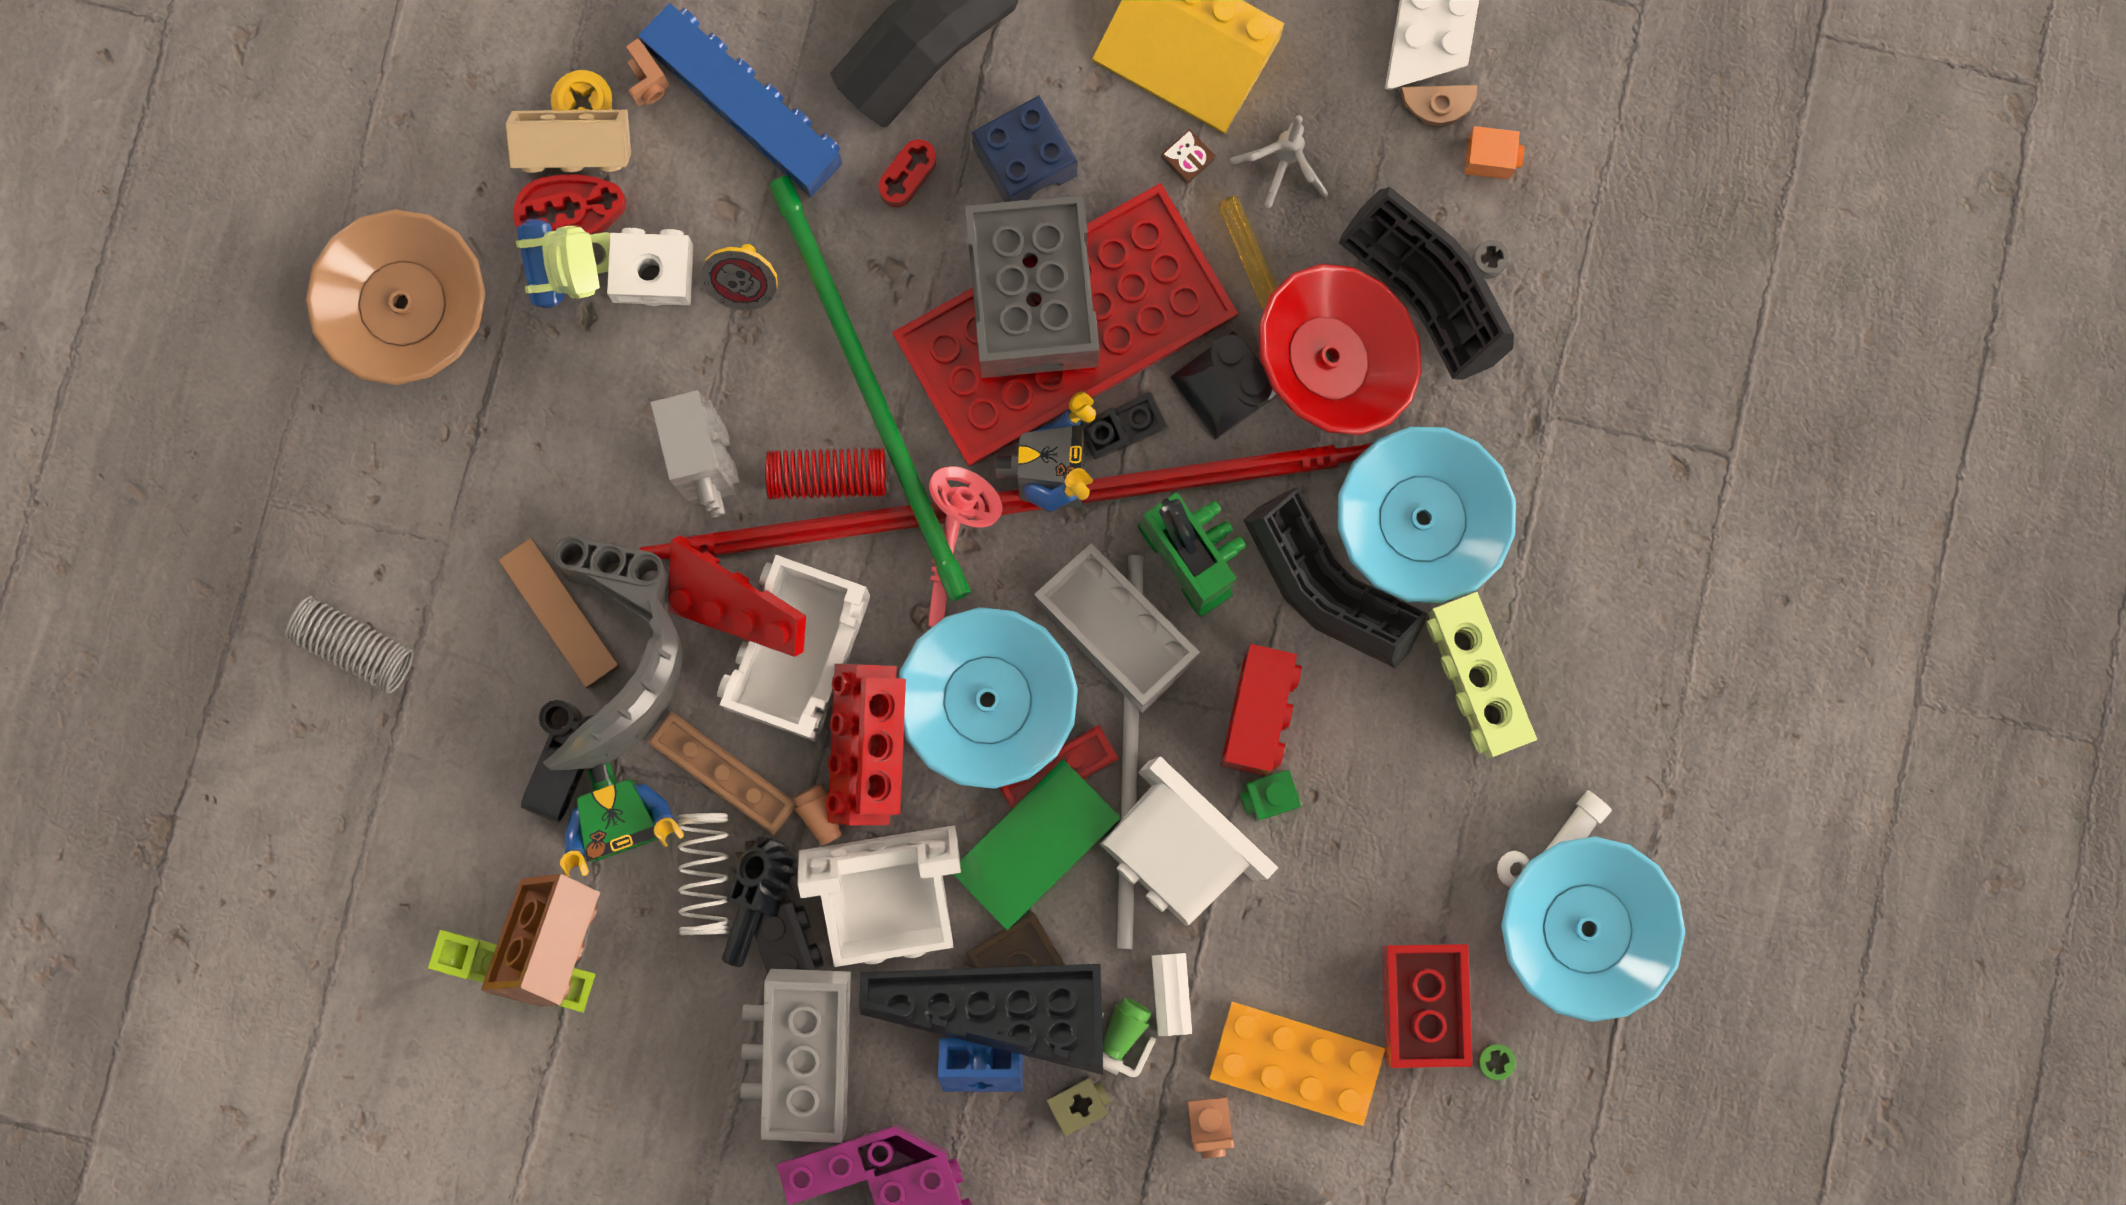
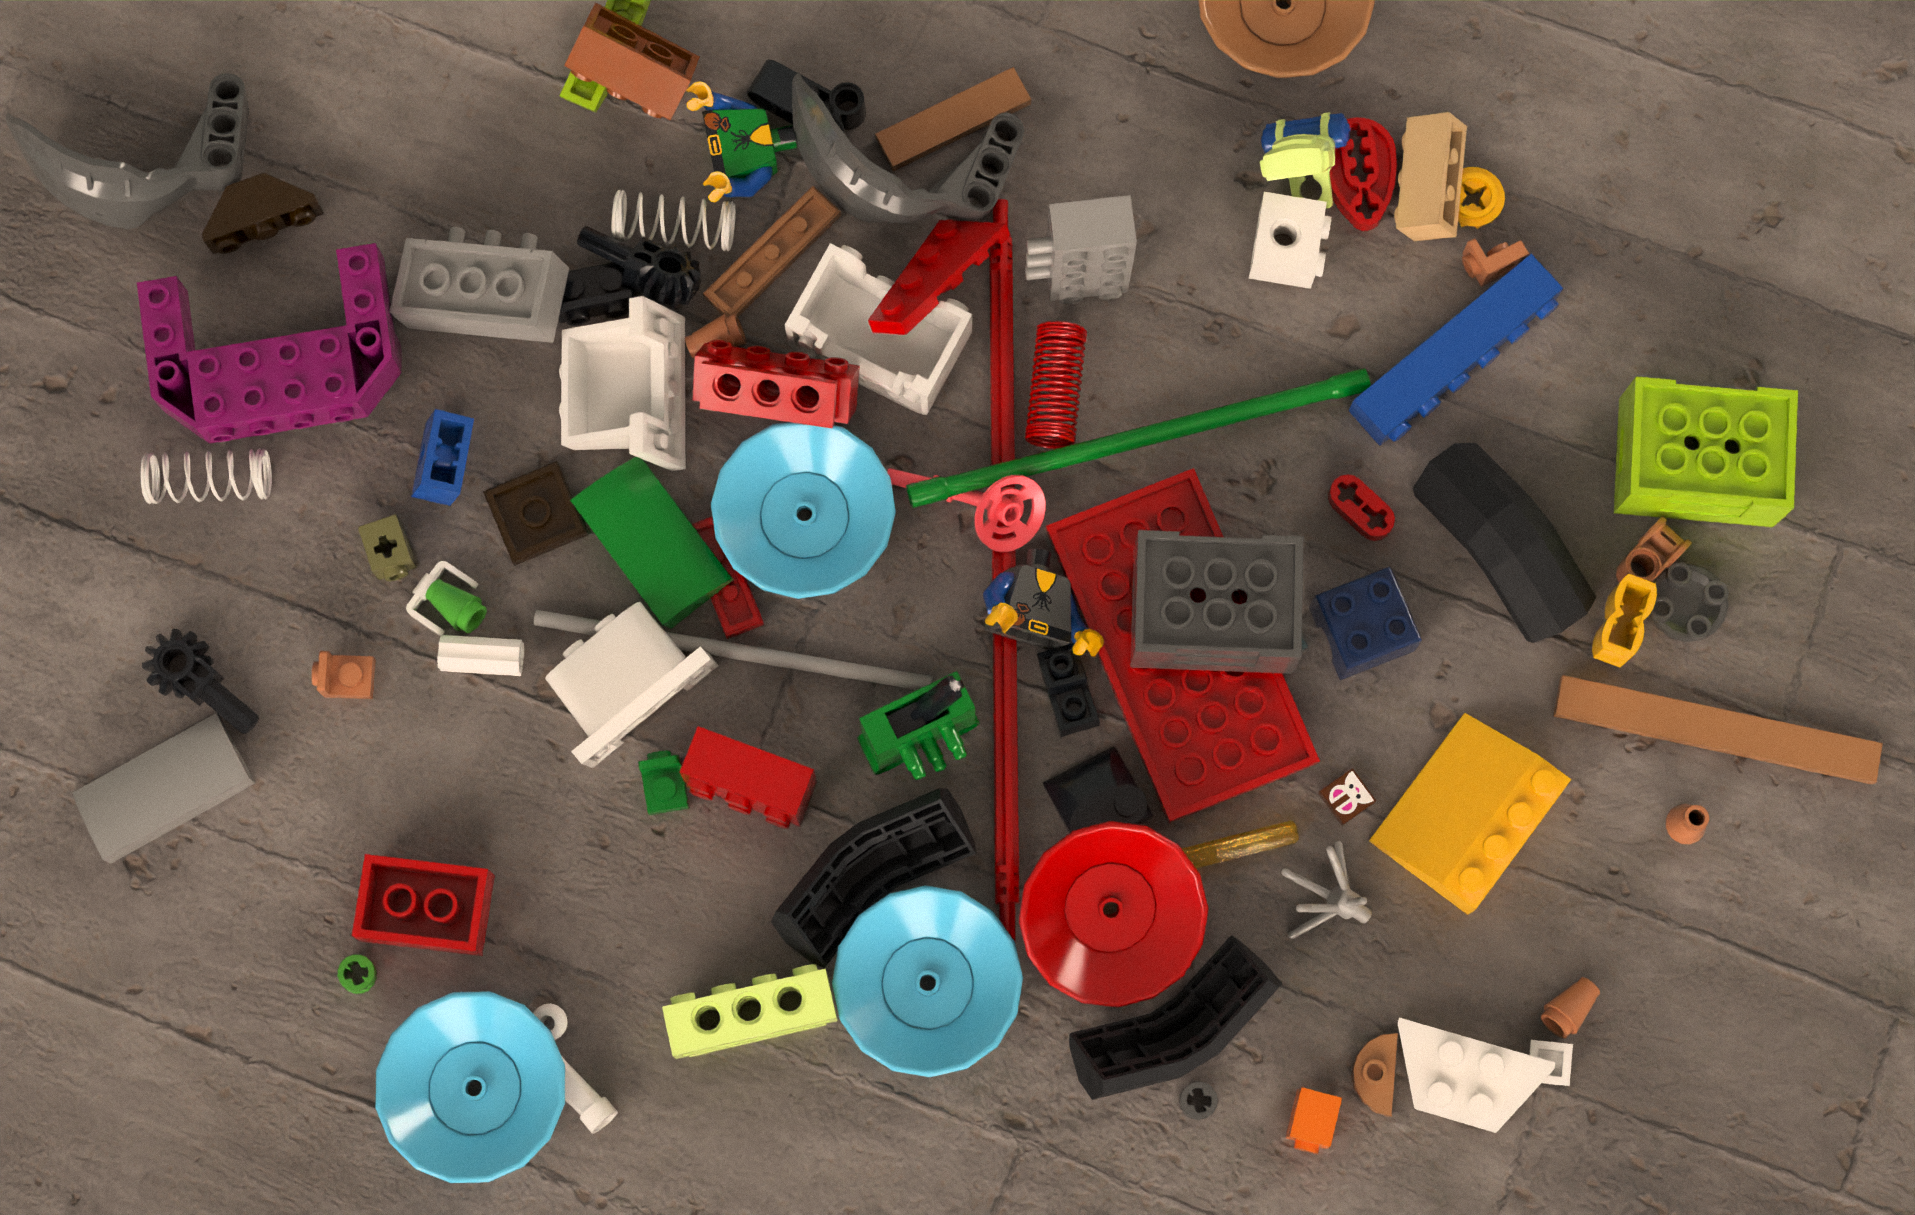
camera: 100 degrees right, 5 degrees down
(739, 278) = (1268, 325): shield -> none
(1019, 1009) = (488, 496): black wing -> none
(1116, 627) = (857, 649): light grey slope -> none
(1297, 1063) = (392, 771): light orange plate -> none

